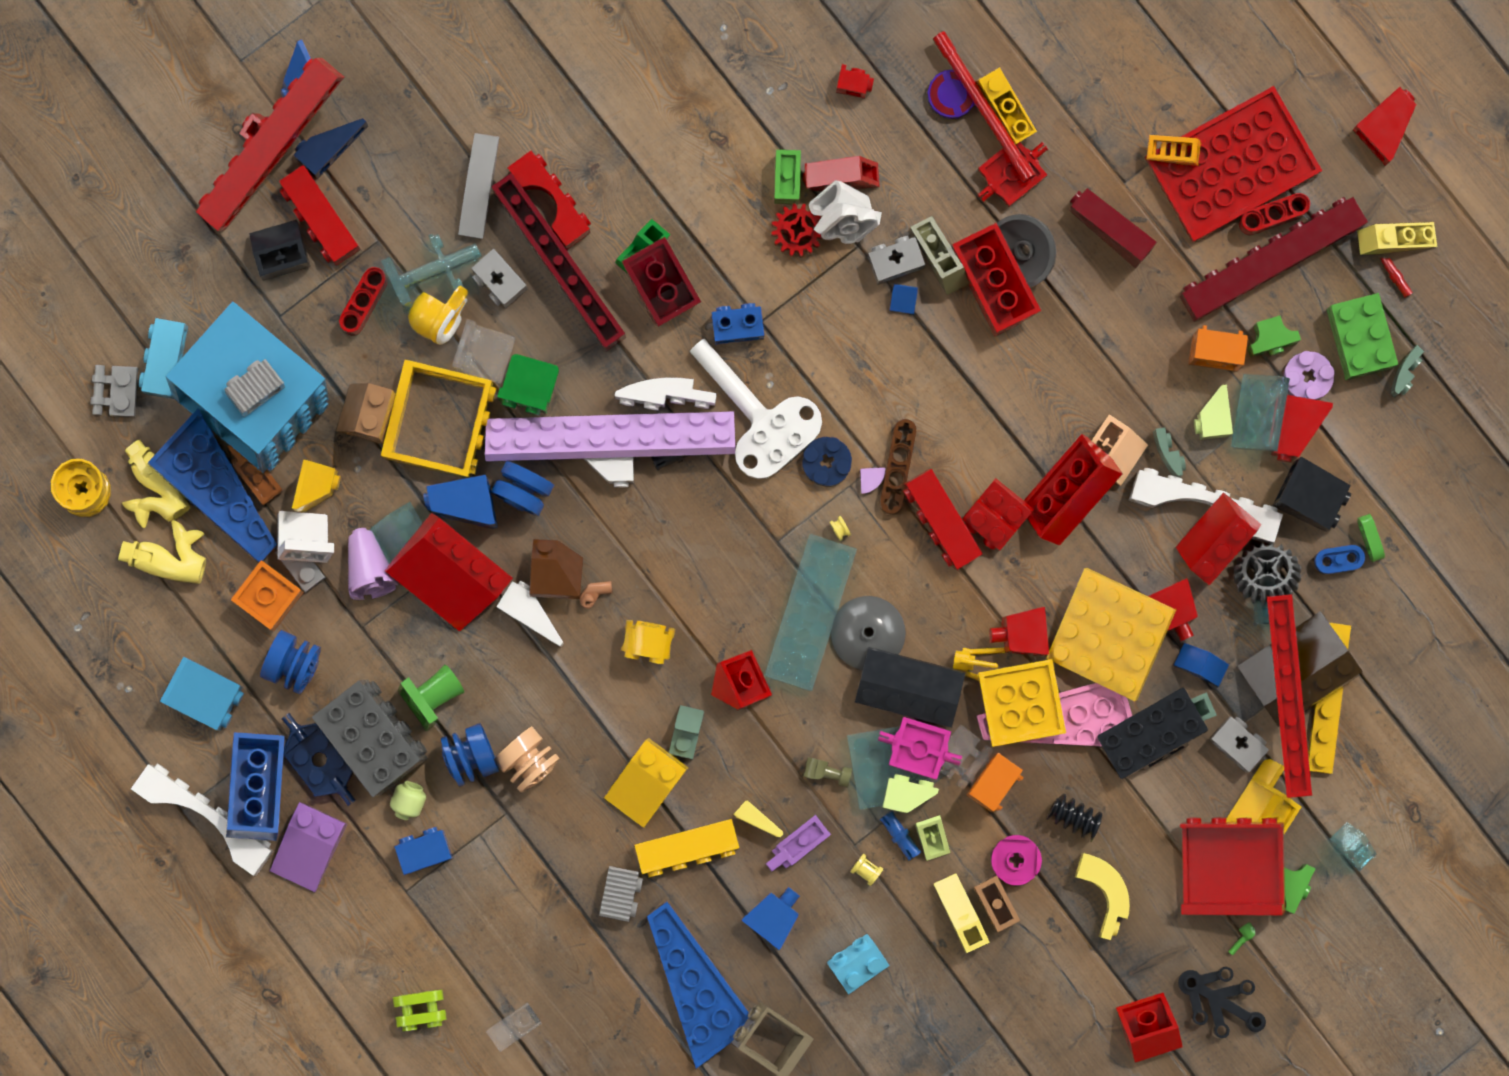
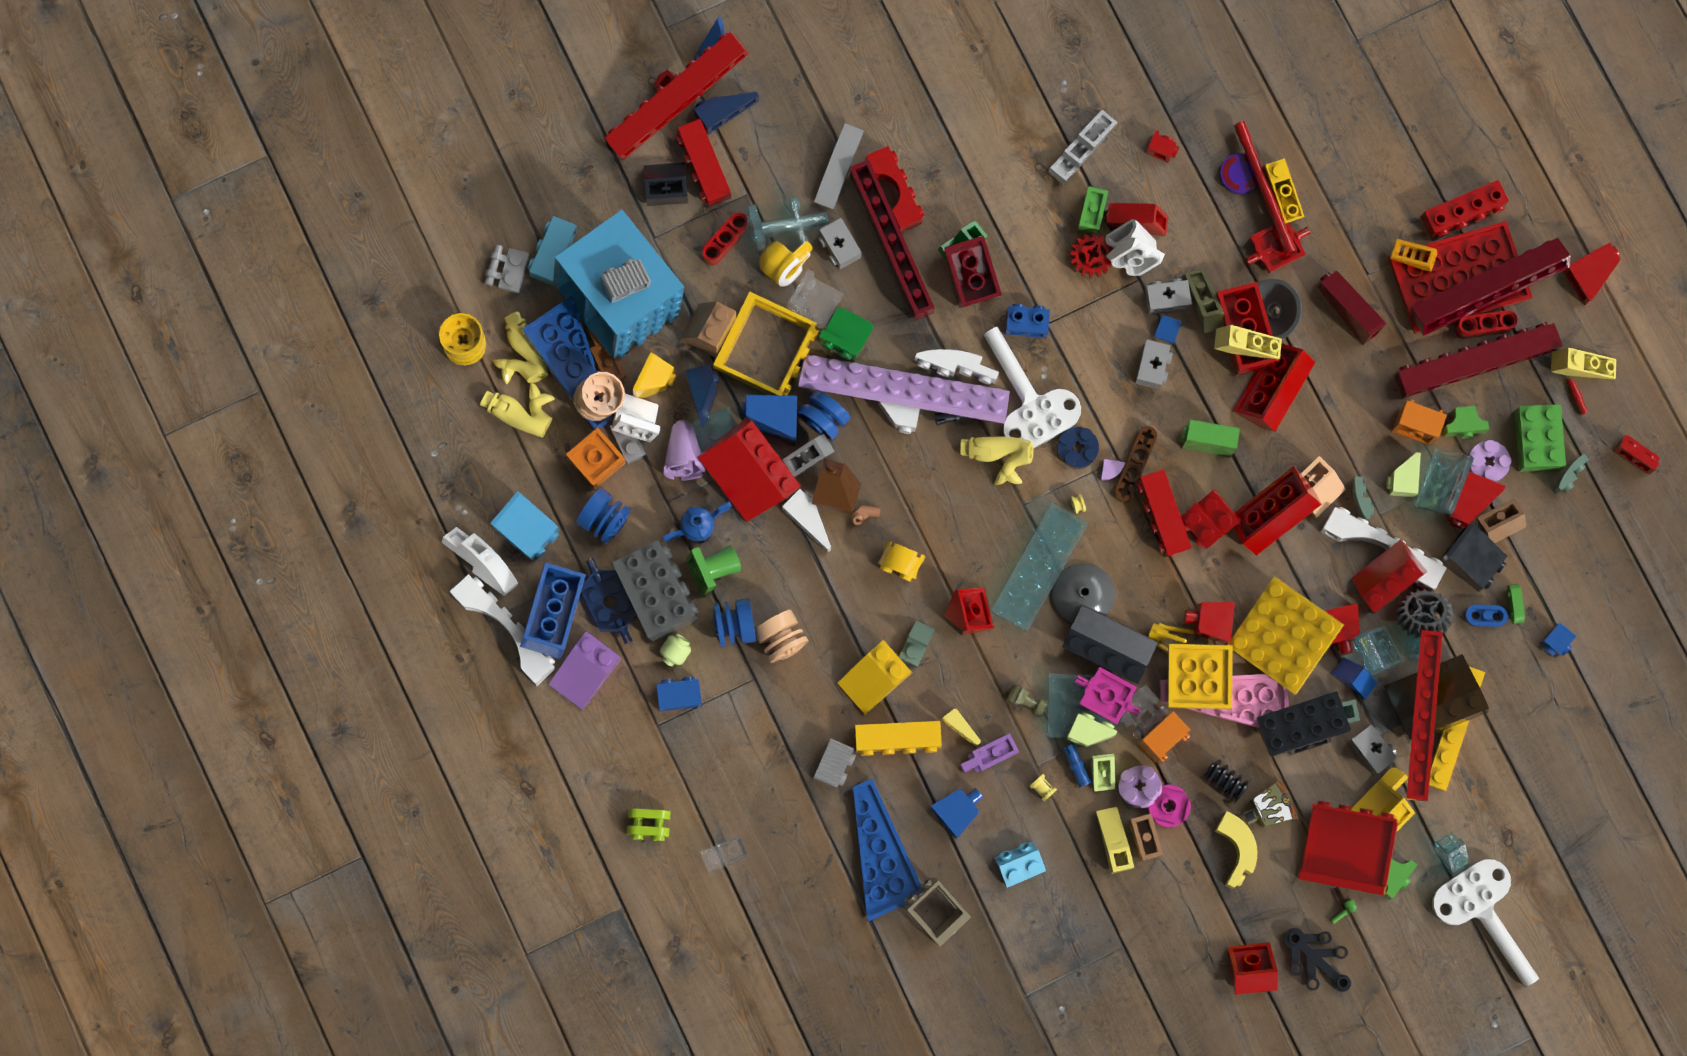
camera: 10 degrees right, 5 degrees down
(164, 744) = (484, 559): none -> white slope
(266, 531) = (610, 395): none -> light nougat wheel
(375, 489) = (703, 390): none -> dark blue slope
(409, 655) = (698, 532): none -> blue helmet
(514, 539) = (808, 455): none -> light grey brick
(729, 484) = (993, 448): none -> light yellow piece
(760, 101) = (1082, 147): none -> light grey slope
(889, 358) = (1146, 373): none -> light grey brick
(977, 419) = (1209, 438): none -> bright green brick
(990, 850) = (1143, 775): none -> lavender plate
(999, 299) = (1247, 342): none -> light yellow slope
(1042, 342) = (1274, 388): none -> red slope
(1134, 836) = (1271, 807): none -> torso
(1222, 81) = (1464, 209): none -> red brick
(1222, 628) = (1378, 650): none -> clear light blue brick
(1270, 169) = (1490, 286): none -> dark red brick
(1336, 445) = (1502, 521): none -> medium nougat brick
(1387, 889) = (1474, 896): none -> white piece
(1428, 571) = (1558, 641): none -> blue brick
(1480, 331) = (1638, 454): none -> red bracket

